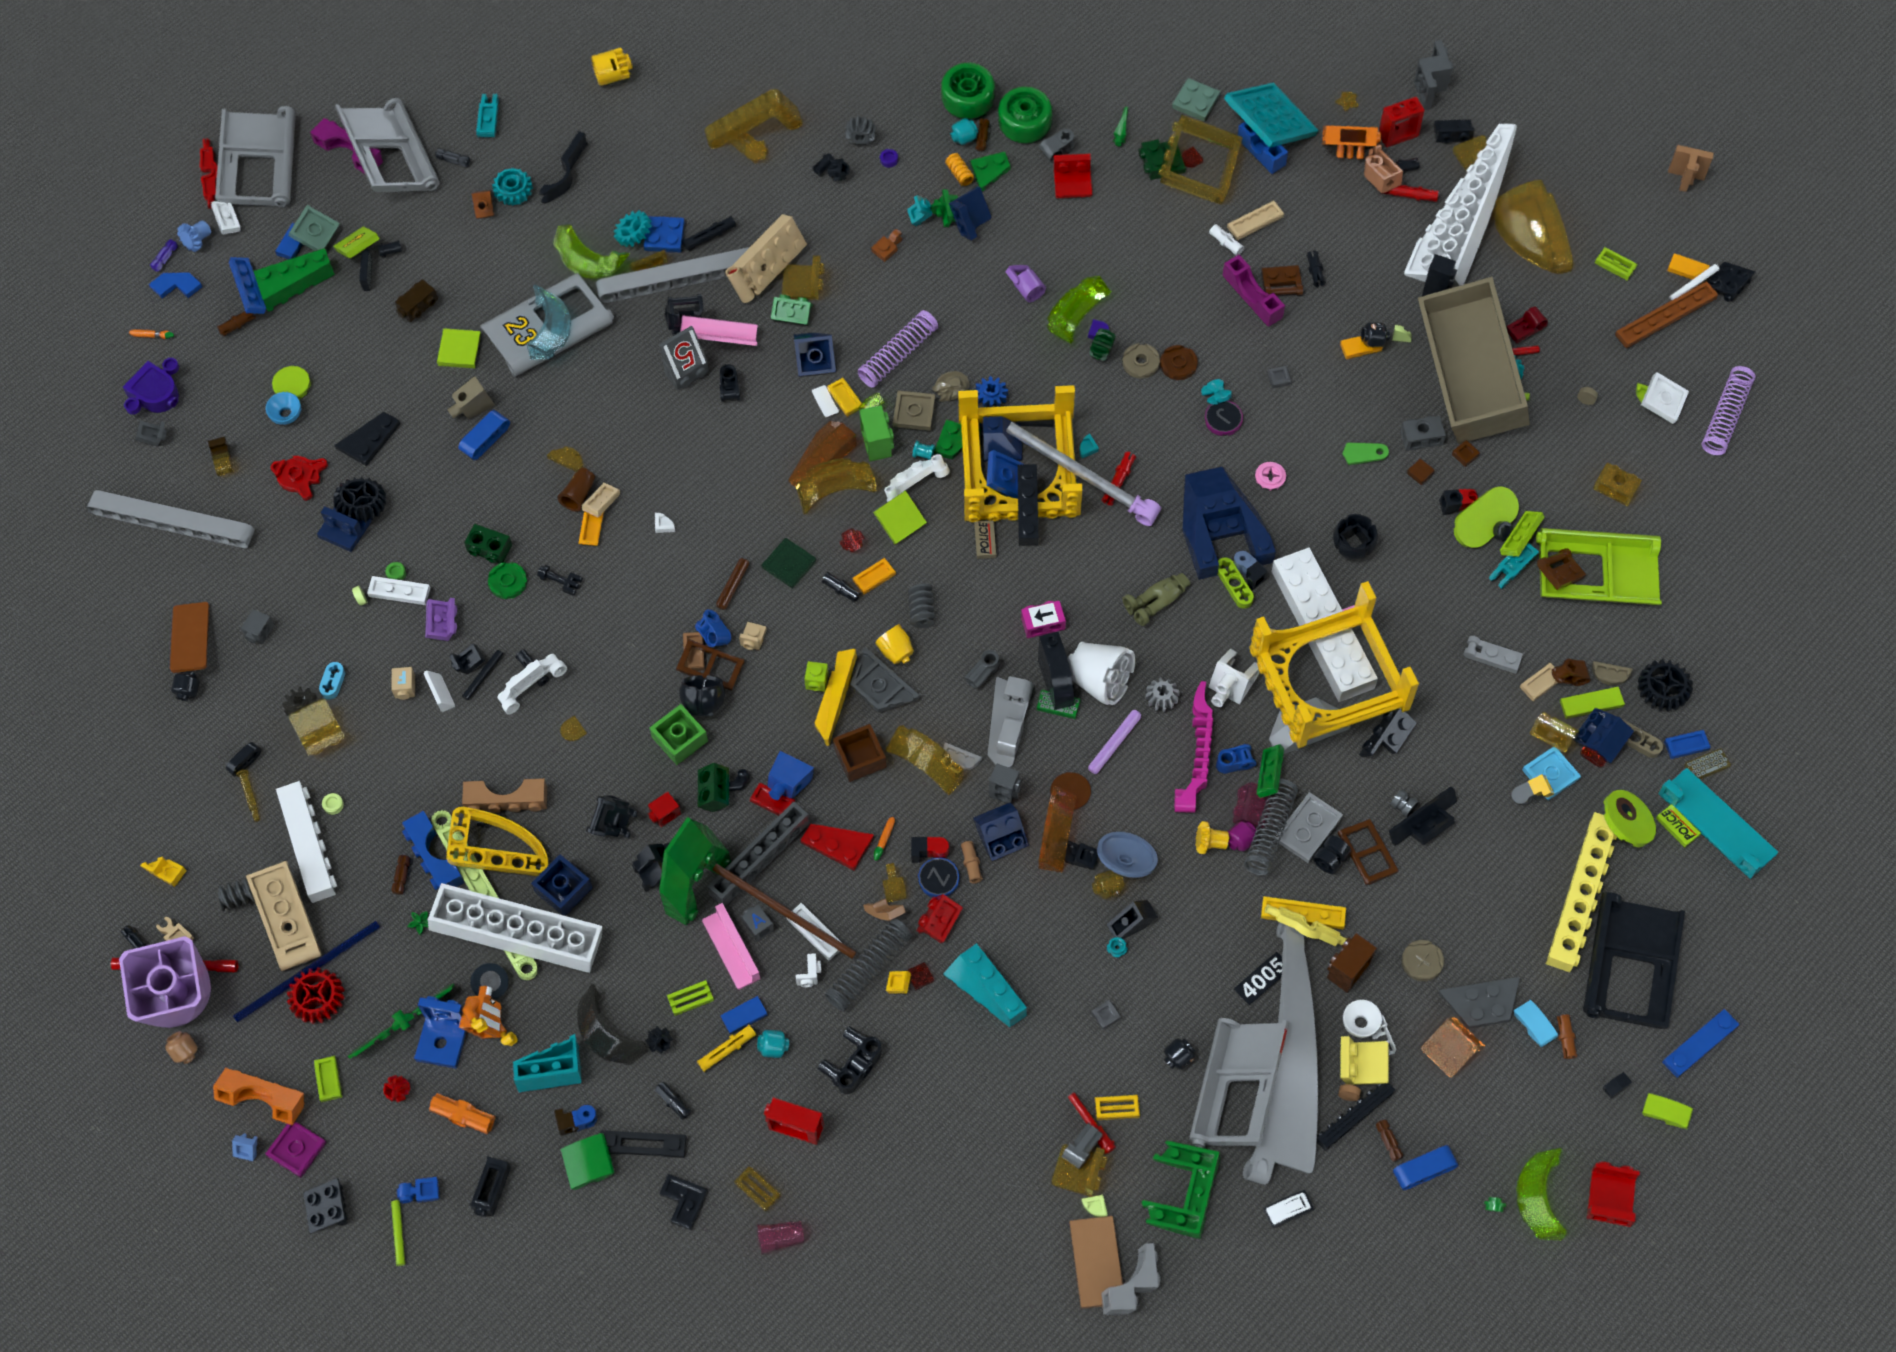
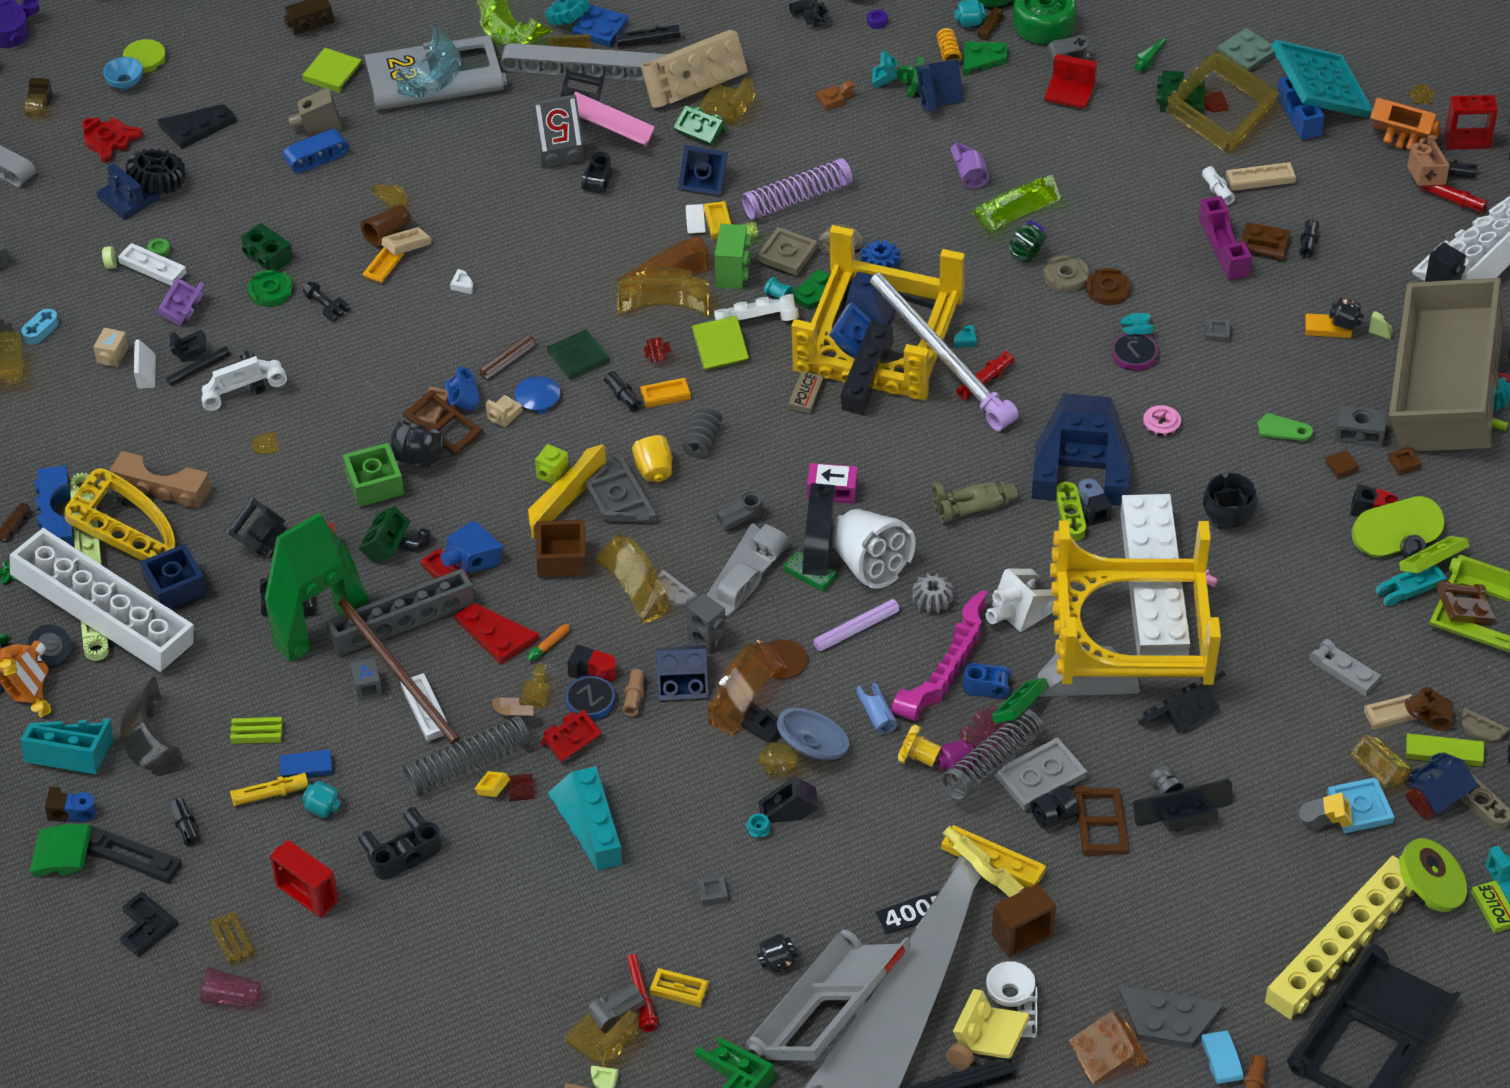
camera: 20 degrees right, 15 degrees down
(659, 1039) = (204, 761): black gear -> none
(731, 948) = (326, 696): bright pink panel -> none
(772, 611) = (537, 393): none -> blue dish
(811, 978) = (400, 746): white bracket -> none
(1163, 813) = (878, 710): none -> medium blue piece
(1422, 960) = (1114, 951): dark tan tile -> none

